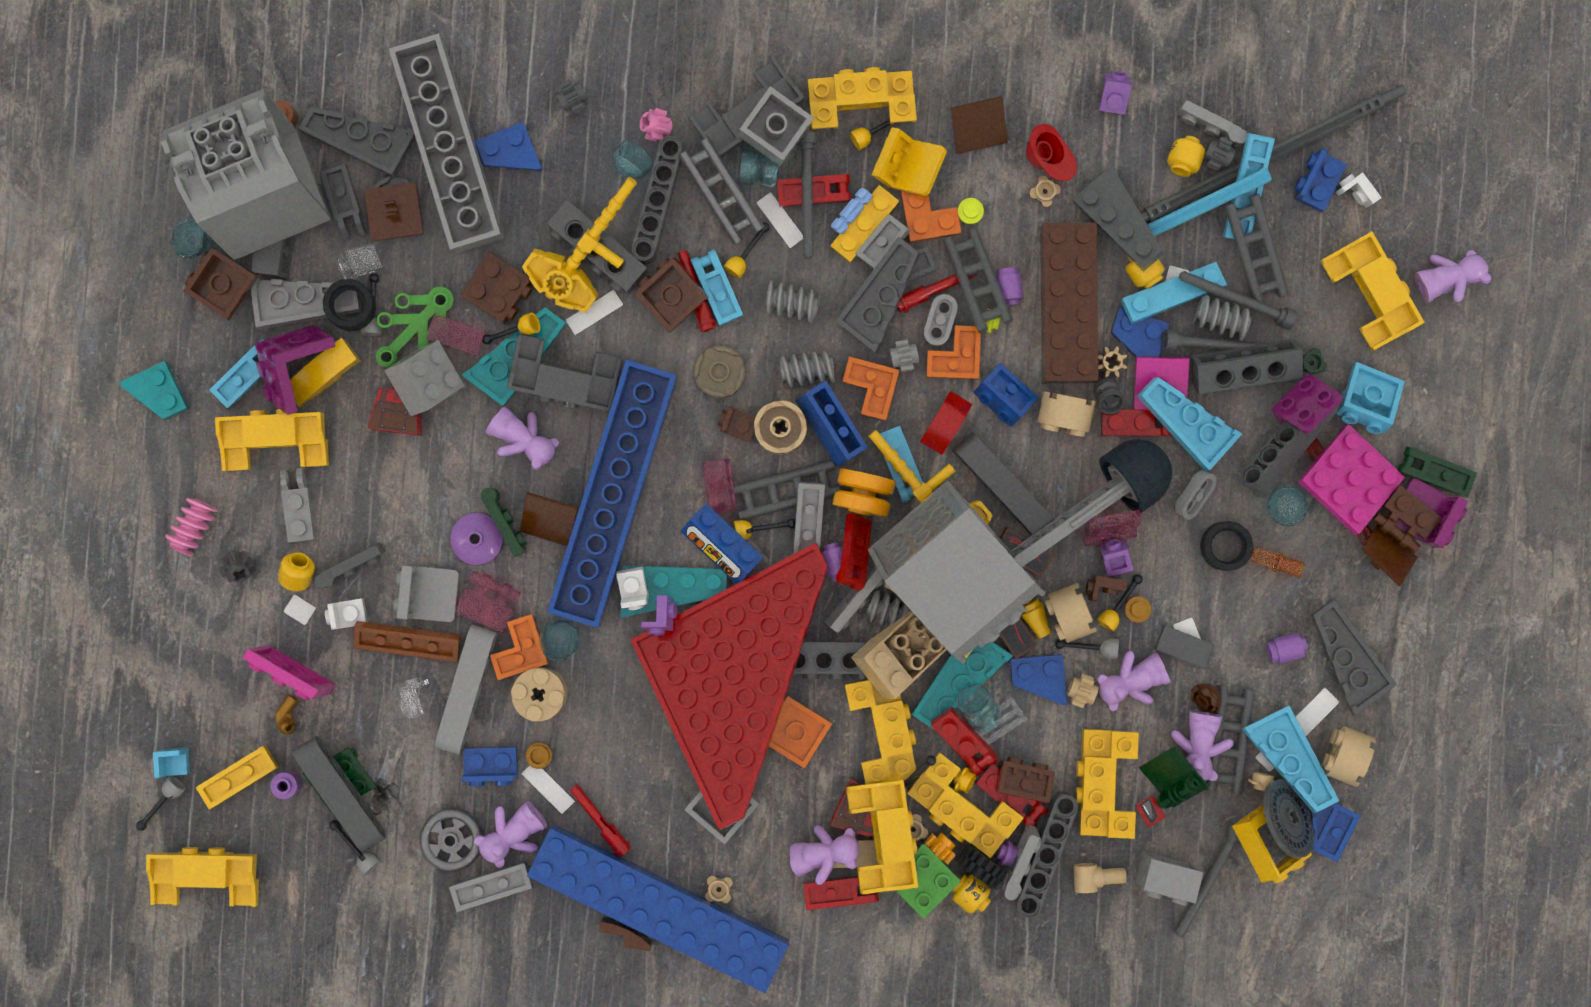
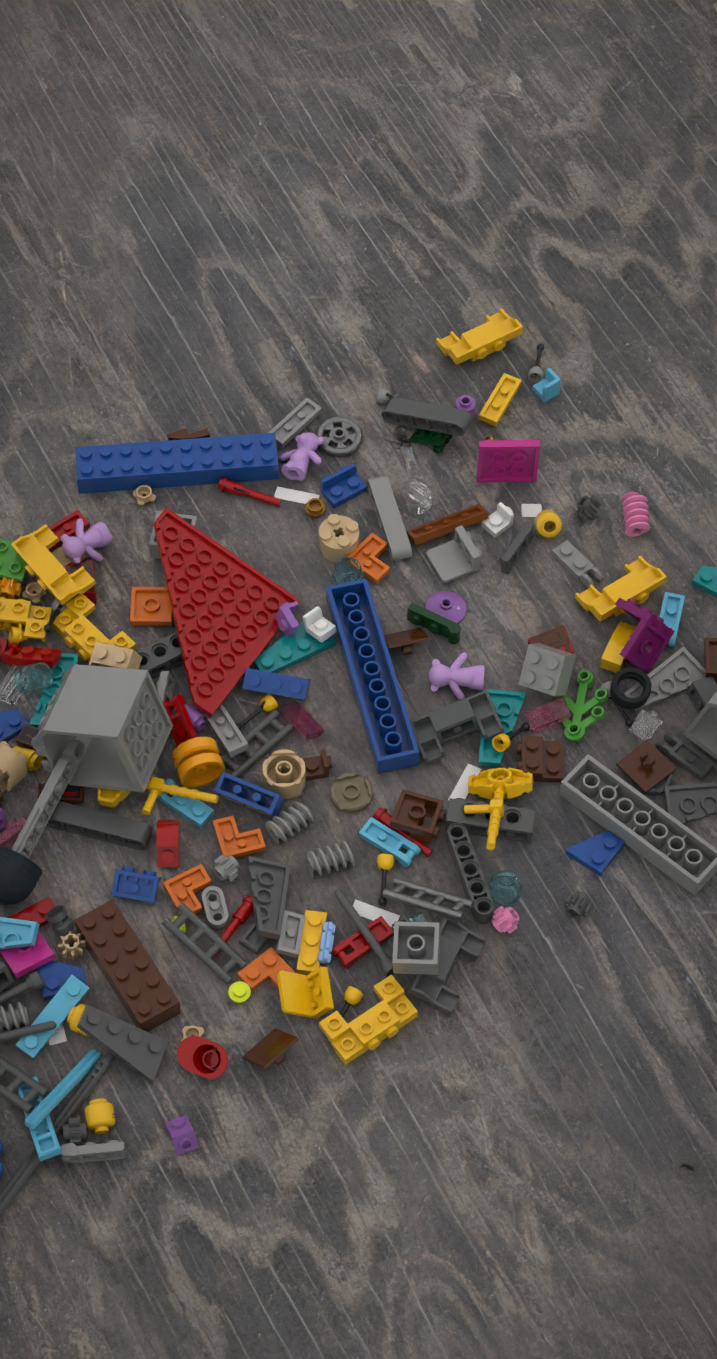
camera: 145 degrees right, 30 degrees down
(484, 609) = (411, 570): clear pink plate -> none
(1010, 285) = (178, 955): medium lavender brick -> none
(1066, 413) = (84, 889): tan brick -> none

